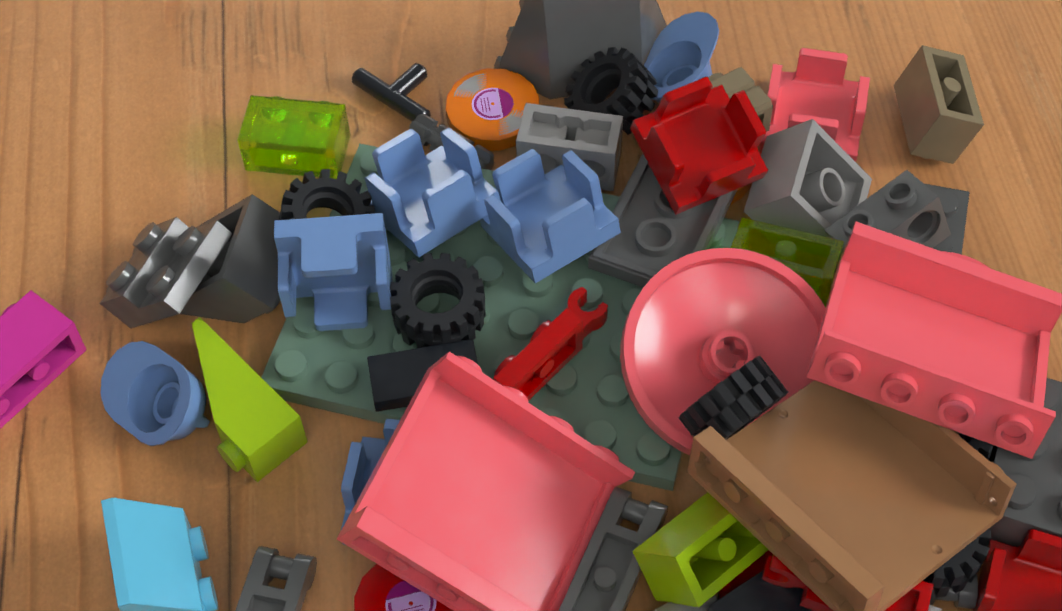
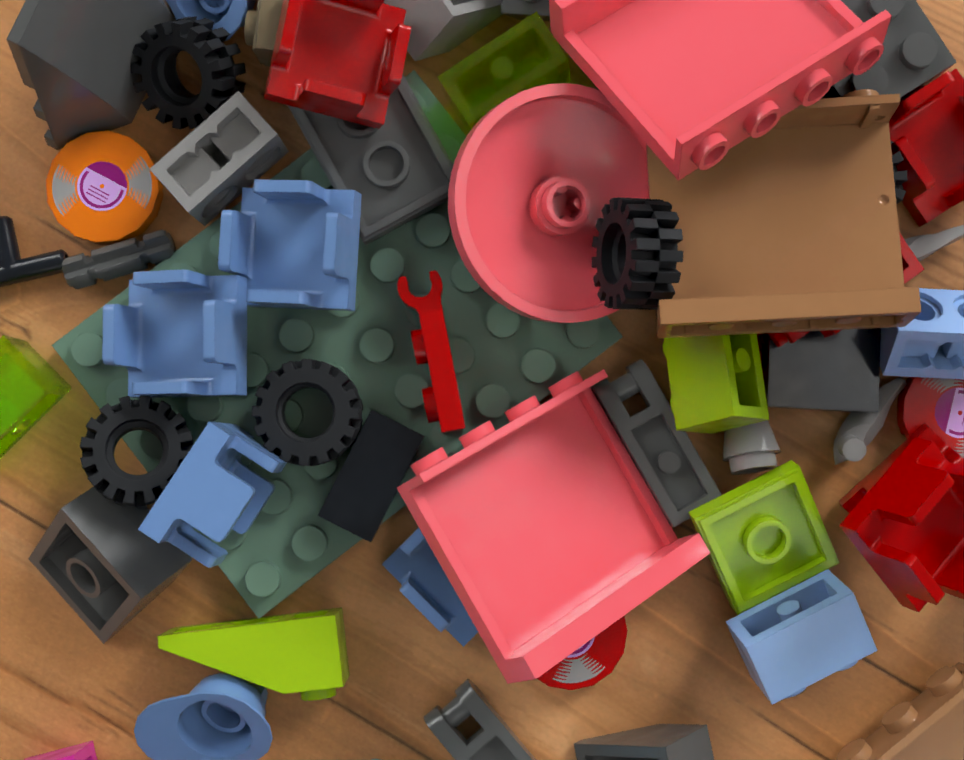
camera: 55 degrees left, 30 degrees up
(163, 270) = (74, 633): dark grey plate -> none

